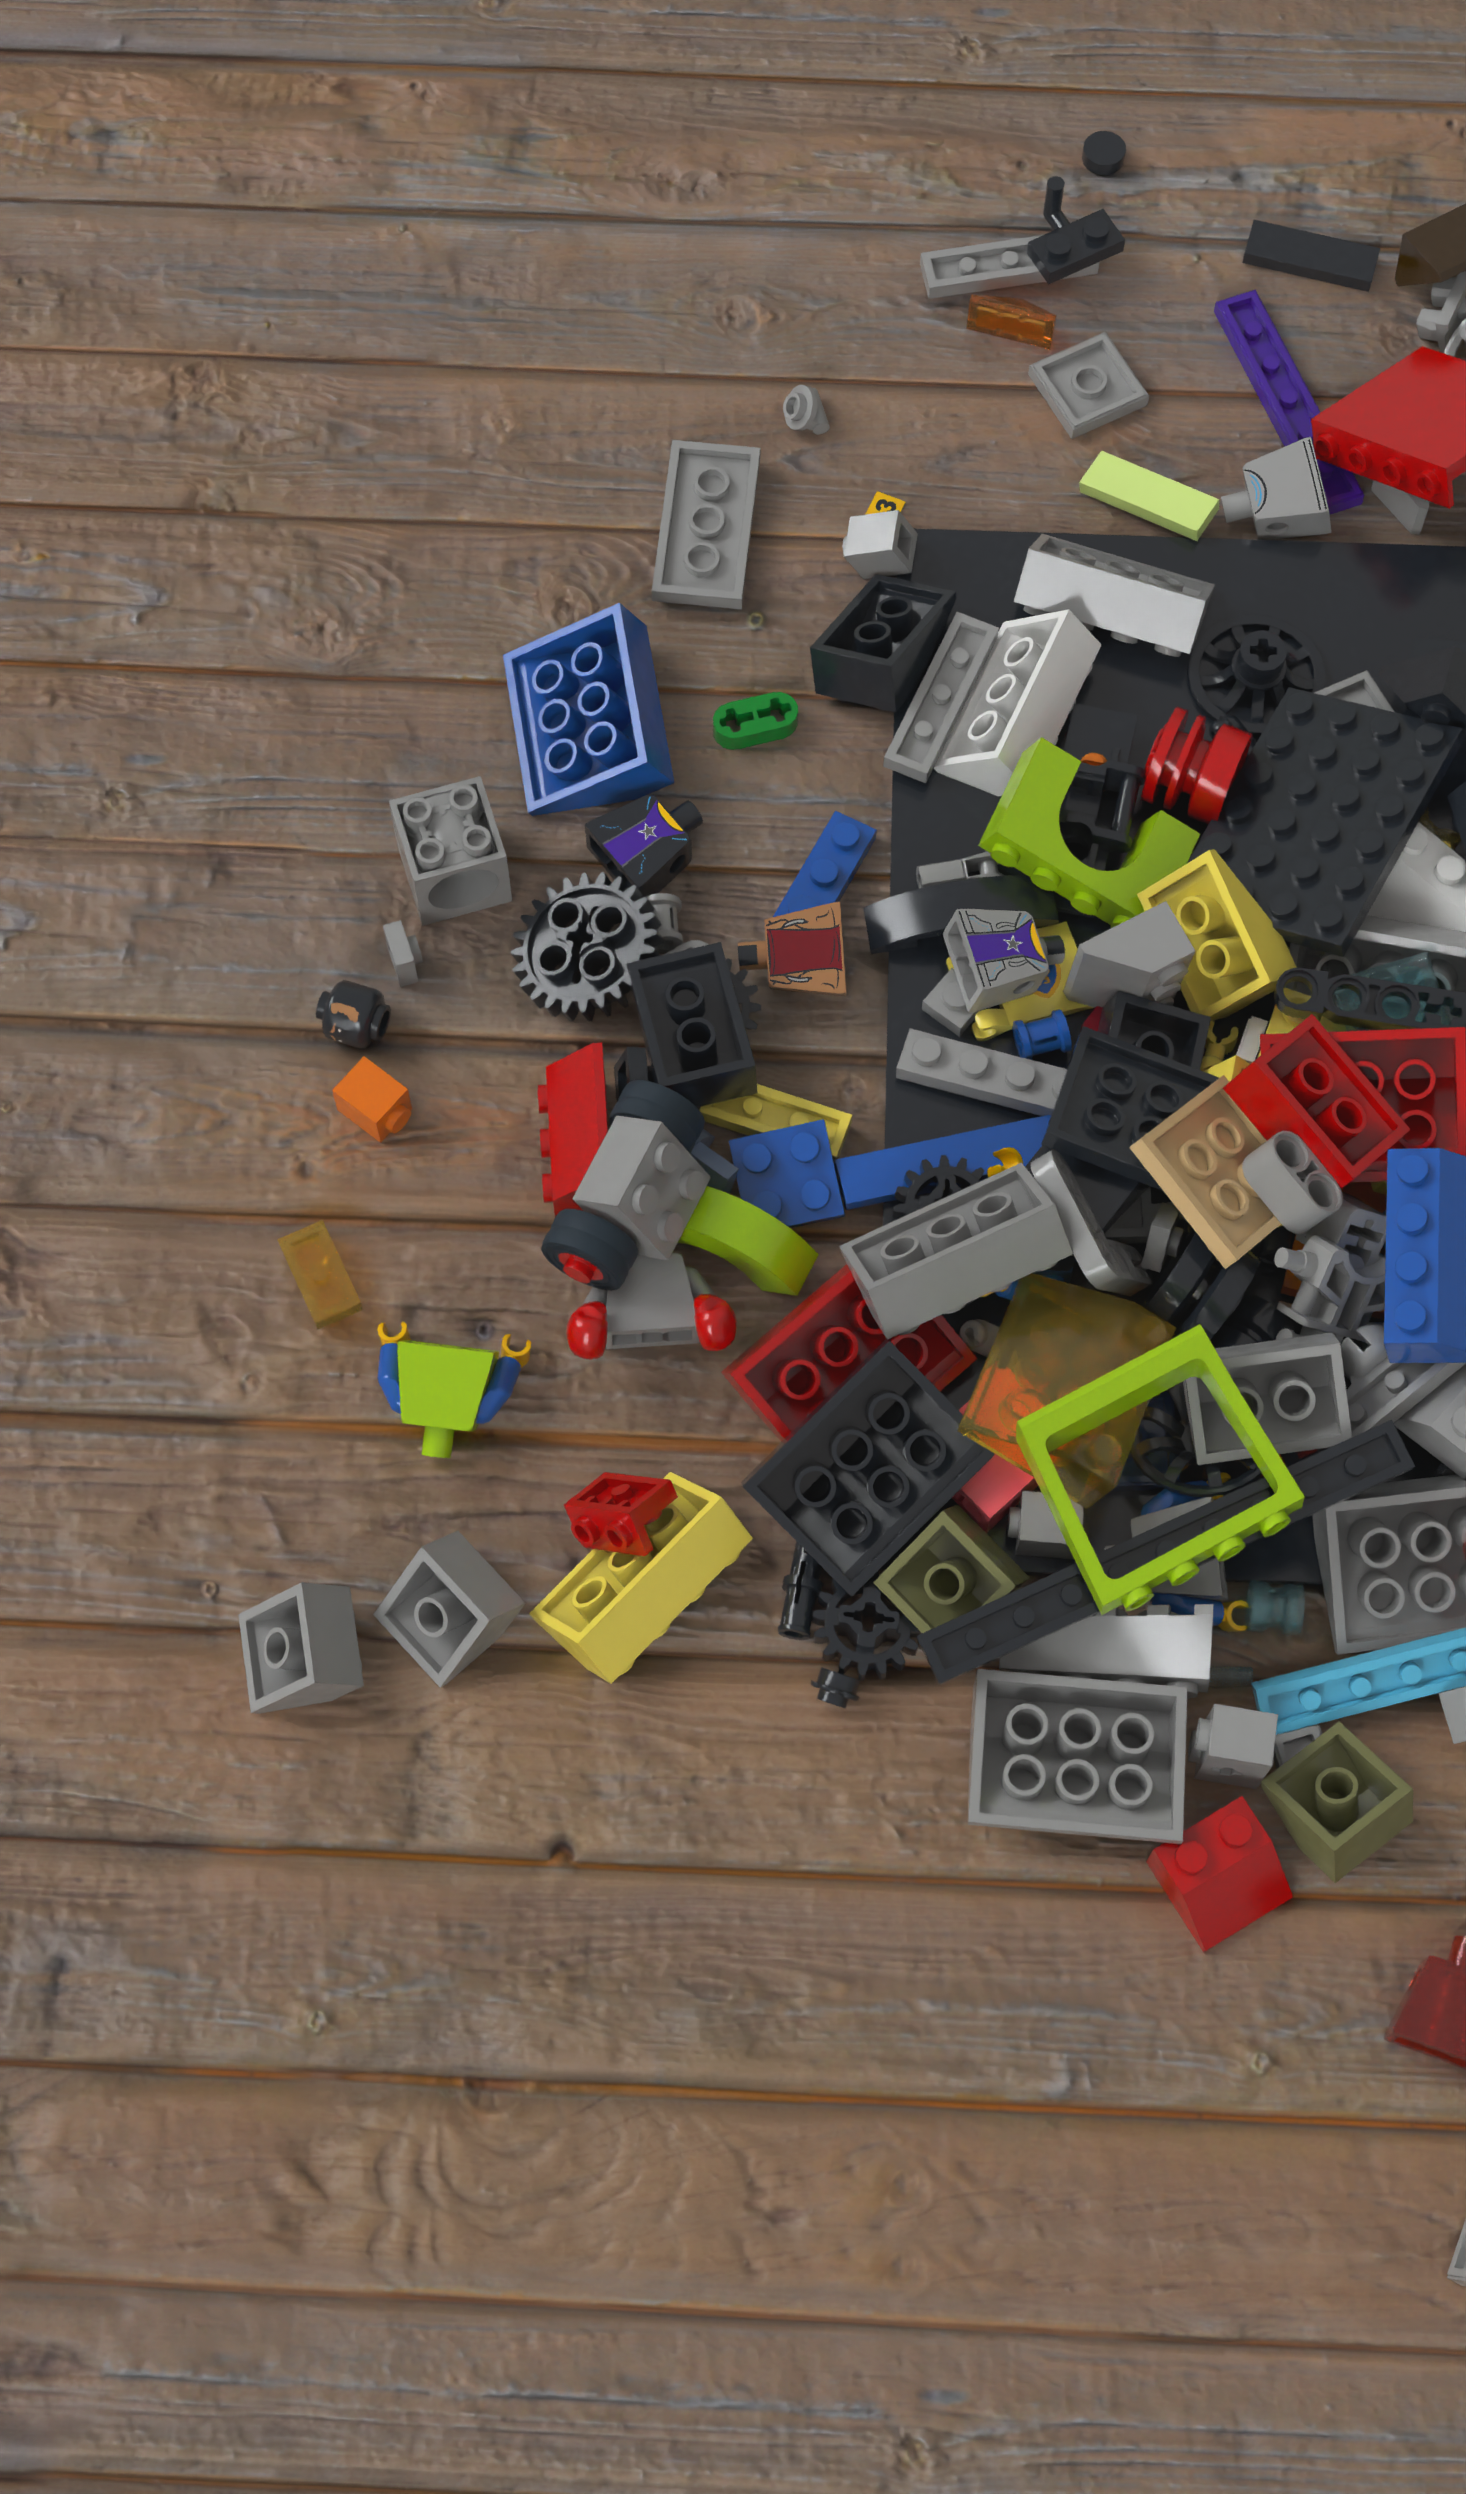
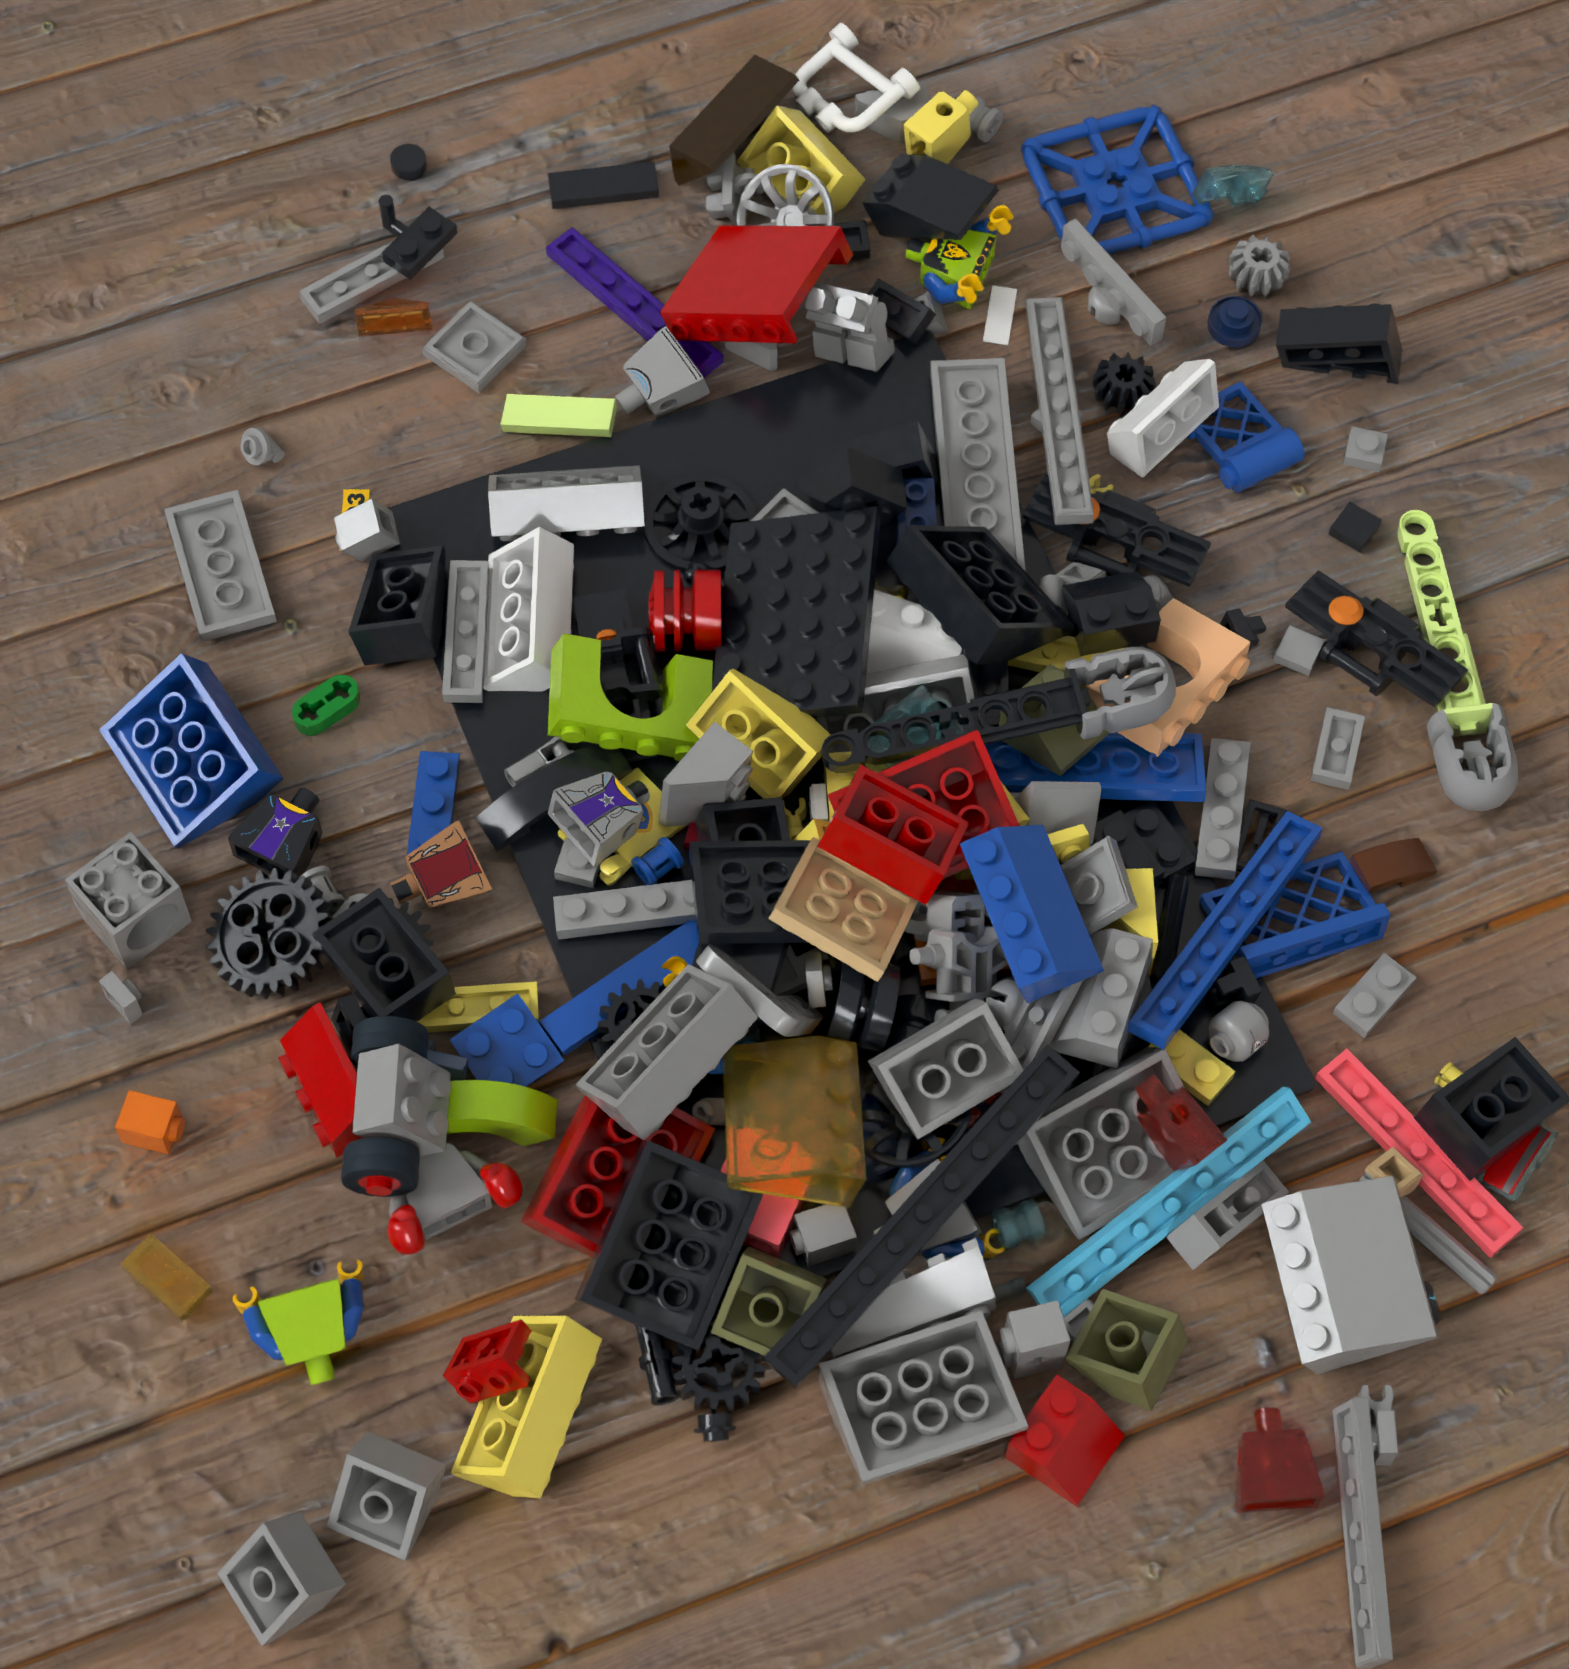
camera: 25 degrees left, 5 degrees down
(353, 1014) = (104, 1061): black head -> none
(1119, 1391) = (838, 1107): lime windscreen -> none
(1292, 1182) = (899, 896): light grey beam -> none

